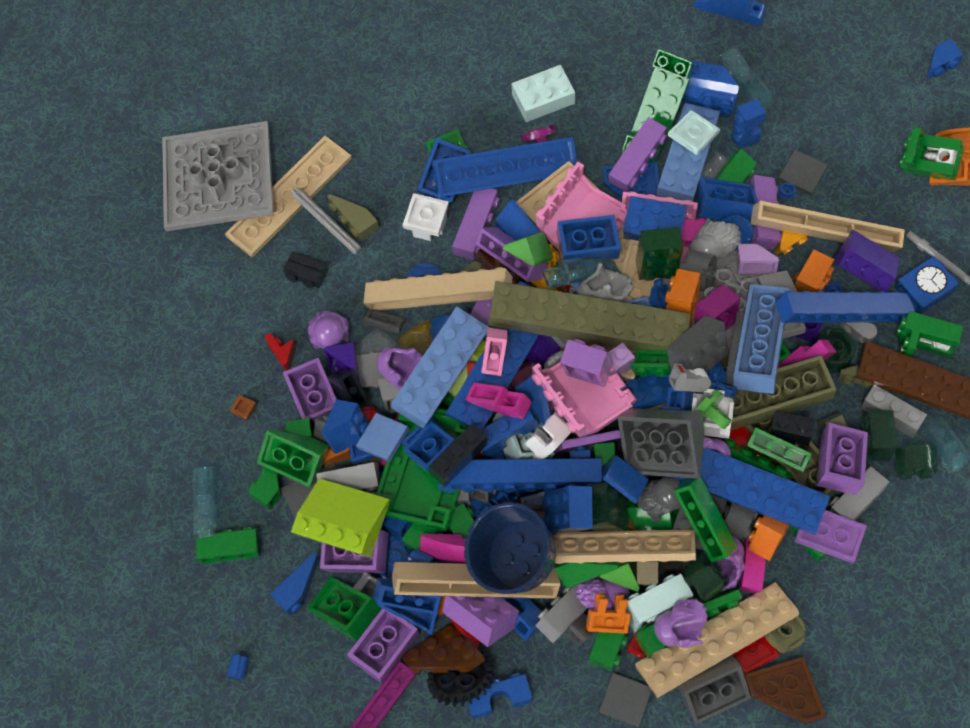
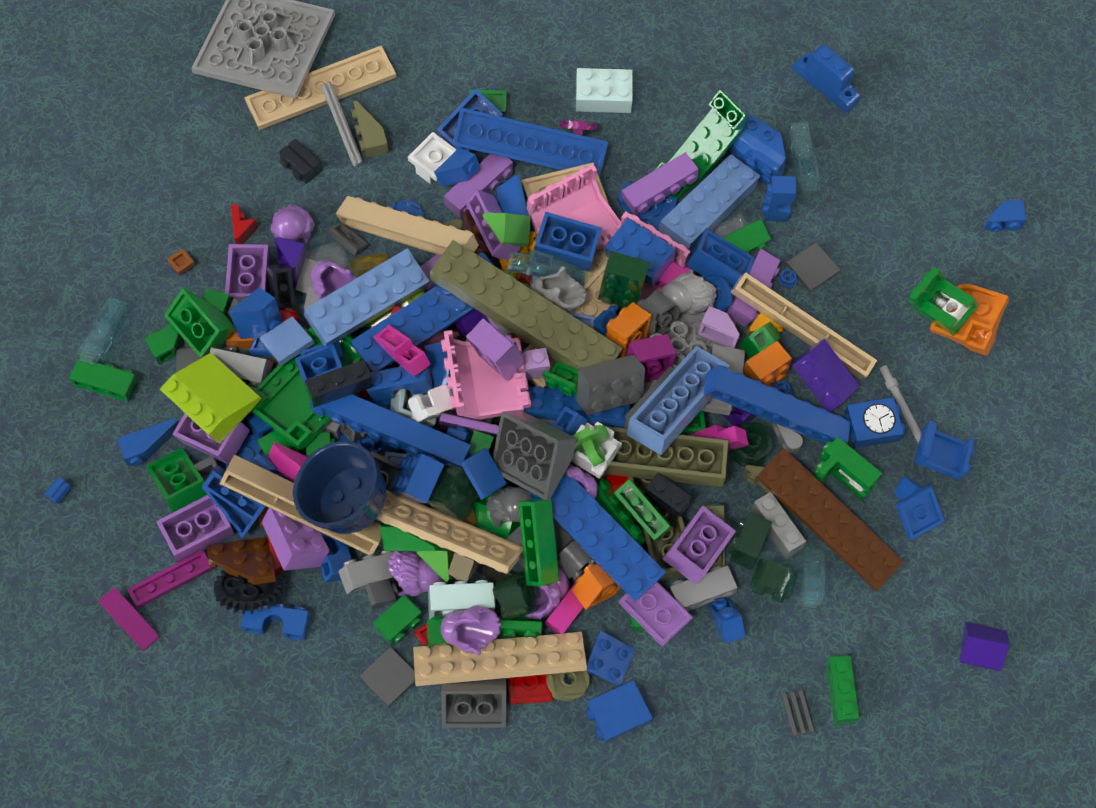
camera: 15 degrees right, 0 degrees up
(453, 215) = (457, 168): none -> blue slope
(494, 351) = (421, 304): bright pink slope -> none
(608, 620) = (405, 595): orange plate -> none
(688, 379) = (584, 406): light grey leg -> none
(693, 132) = (722, 184): light aqua tile -> none
(729, 390) = (619, 433): blue pin -> none
(787, 689) = (542, 734): reddish brown plate -> none
(795, 255) = (760, 340): none -> green slope
(810, 595) = (609, 659): none -> blue hinge
(843, 639) = (618, 712): none -> blue panel
(893, 514) = (727, 619): none -> blue slope

